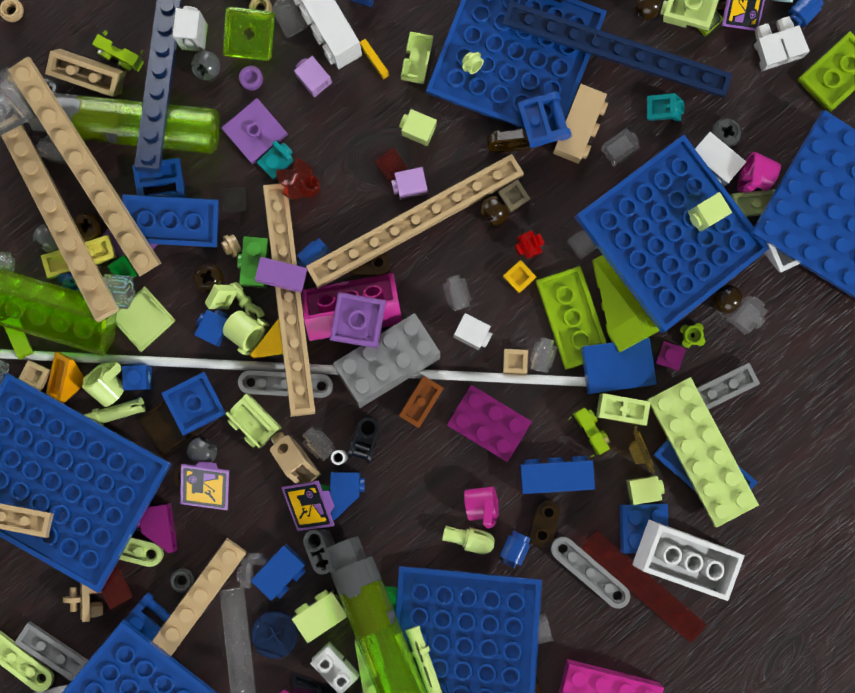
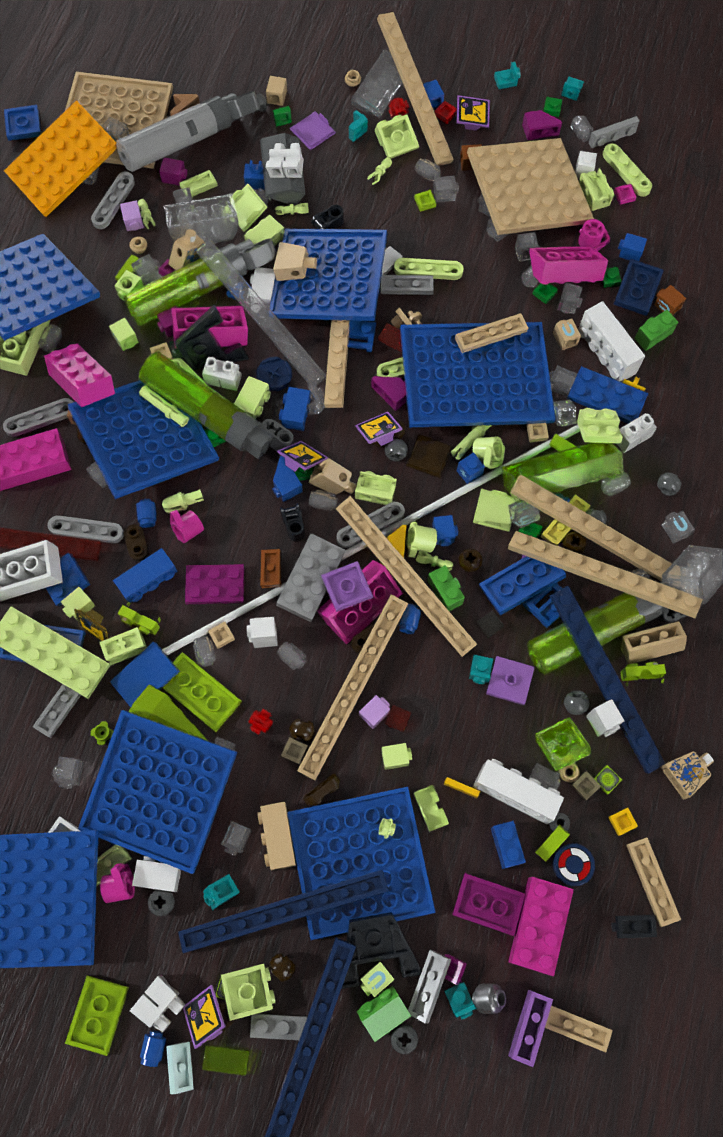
camera: 140 degrees right, 15 degrees down
(64, 378) = (517, 440): light orange slope -> none
(174, 580) = (355, 365): dark grey plate -> none
(193, 404) = (422, 475): blue plate -> none
(221, 297) = (452, 551): yellowish green plate -> none
(231, 245) = (470, 590): tan plate -> none
(251, 78) = (539, 717): medium lavender tile -> none
(280, 274) = (420, 585): medium lavender tile -> none
(297, 180) = (457, 663): clear red plate -> none
(312, 75) = (497, 744): lavender brick -> none
(335, 461) = (303, 499): white axle -> none
(519, 276) = (254, 695): yellow plate -> none
(536, 121) = (310, 812): blue plate -> none
(670, 356) = (110, 708): magenta plate -> none
(709, 212) = (137, 820): yellowish green brick -> none
(727, 299) = (88, 773): dark brown piece -> none

